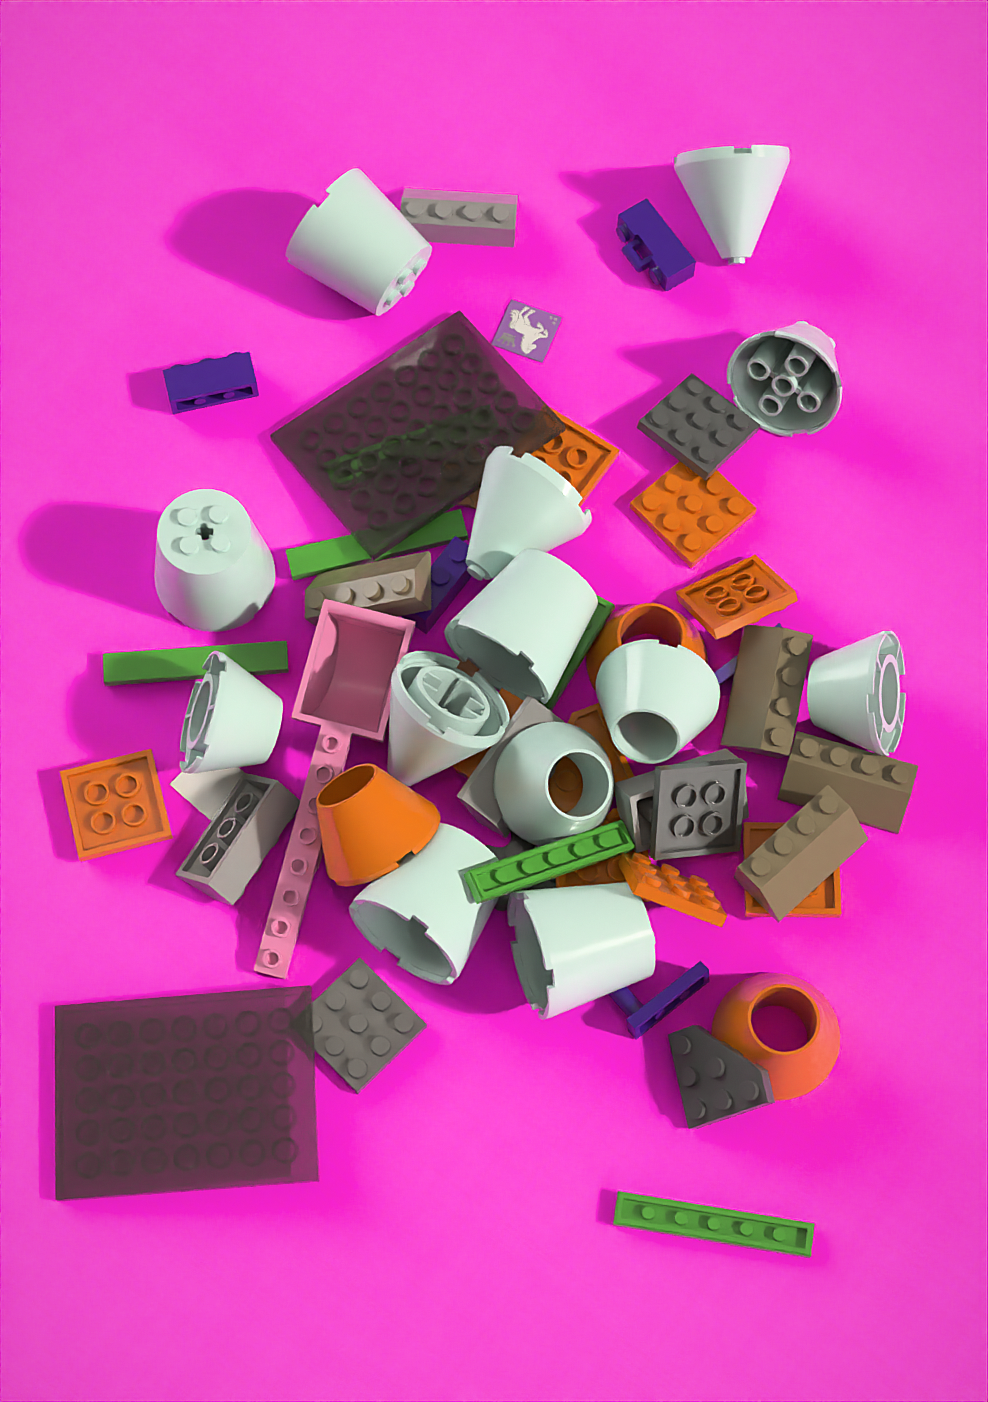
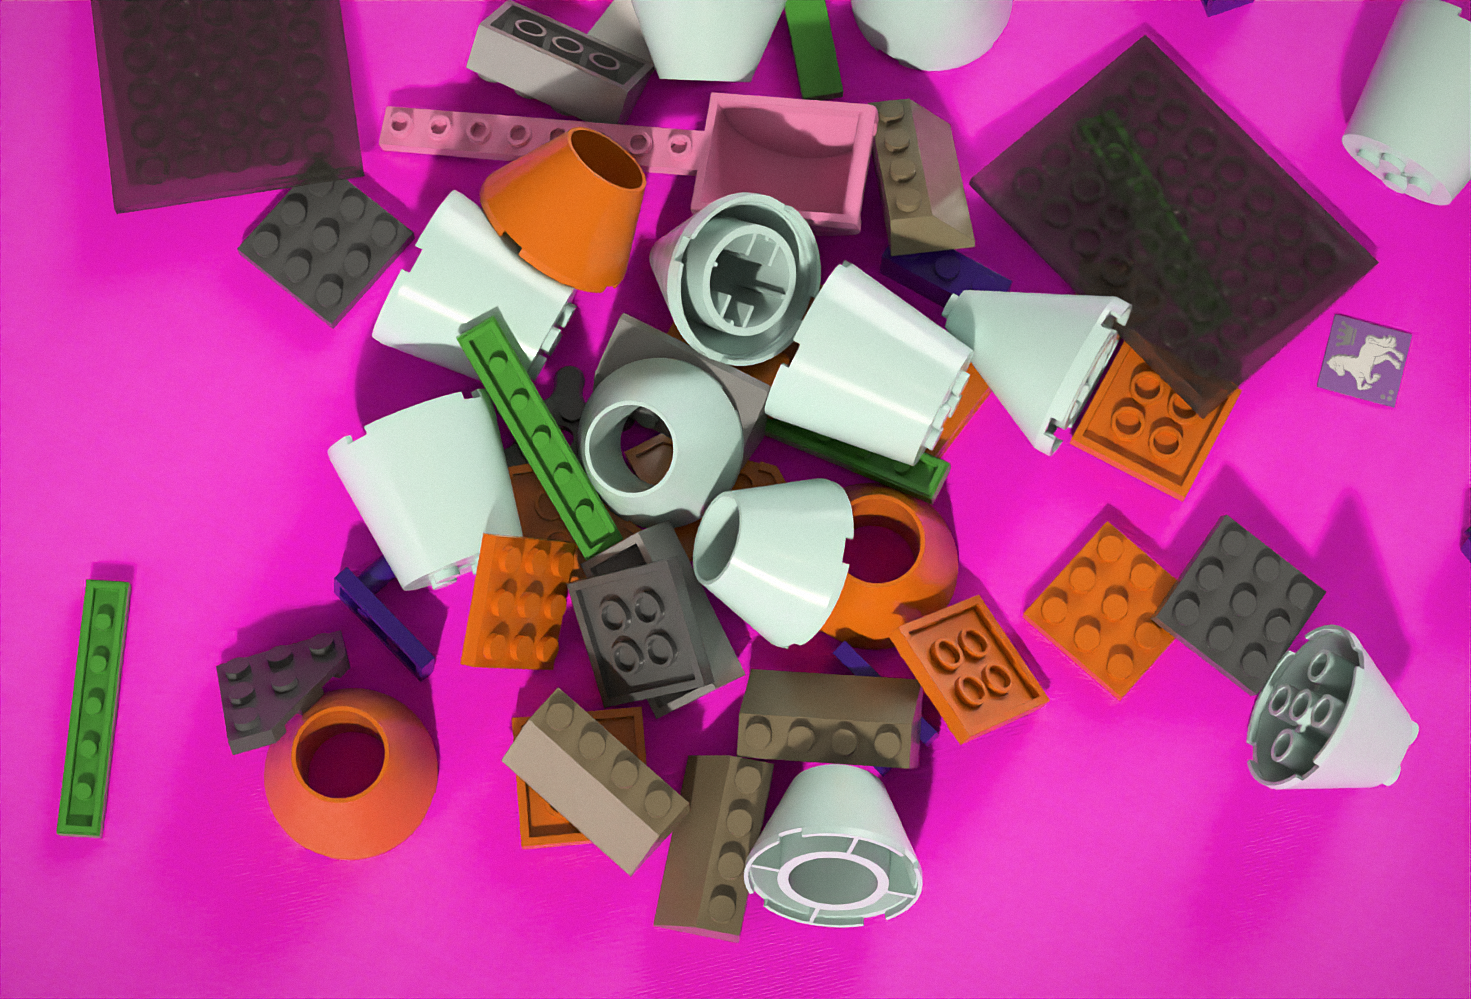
camera: 85 degrees right, 5 degrees up
(347, 552) = (979, 145): bright green tile -> none

